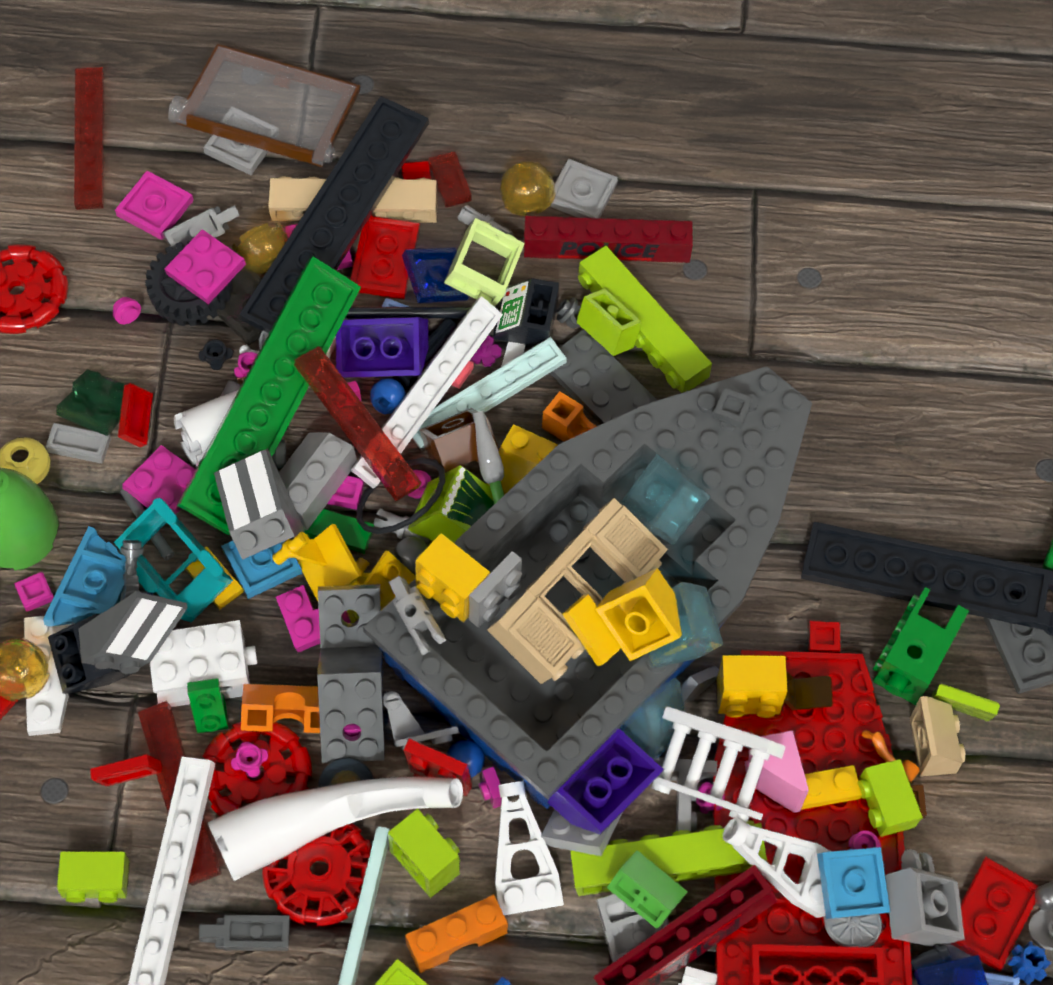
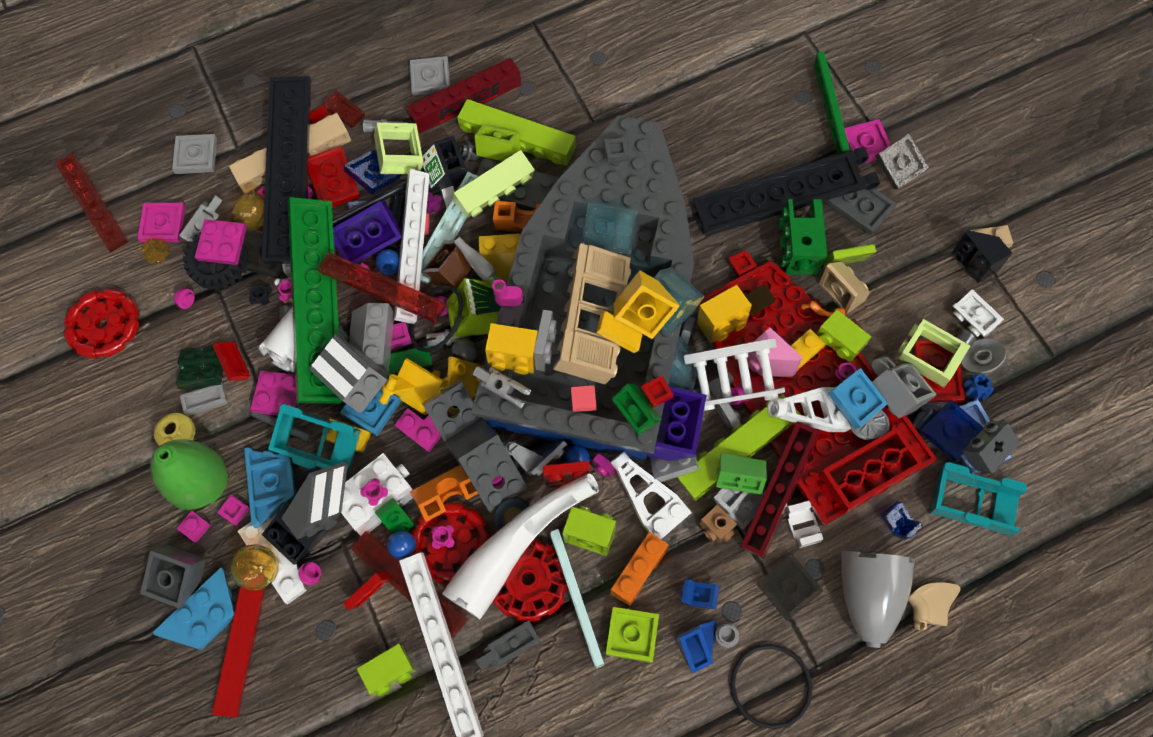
camera: 25 degrees left, 5 degrees up
(74, 713) = (309, 573): none -> dark pink plate
(126, 235) = (155, 251): none -> clear yellow gear
(131, 550) = (284, 447): dark grey piece -> none
(192, 654) = (370, 487): none -> dark pink plate
(196, 740) = (401, 544): none -> blue piece
(267, 105) = (197, 123): clear door -> none
(488, 512) = (507, 295): none -> dark pink piece
(502, 685) = (583, 398): none -> coral tile
(527, 188) = (396, 90): clear yellow cylinder -> none
(558, 732) = (636, 408): none -> green slope
(570, 369) = (493, 184): none -> yellowish green brick
(585, 938) = (718, 525): none -> medium nougat brick
(593, 726) = (657, 391): none -> red plate
(1002, 846) = (941, 338): none -> yellowish green window

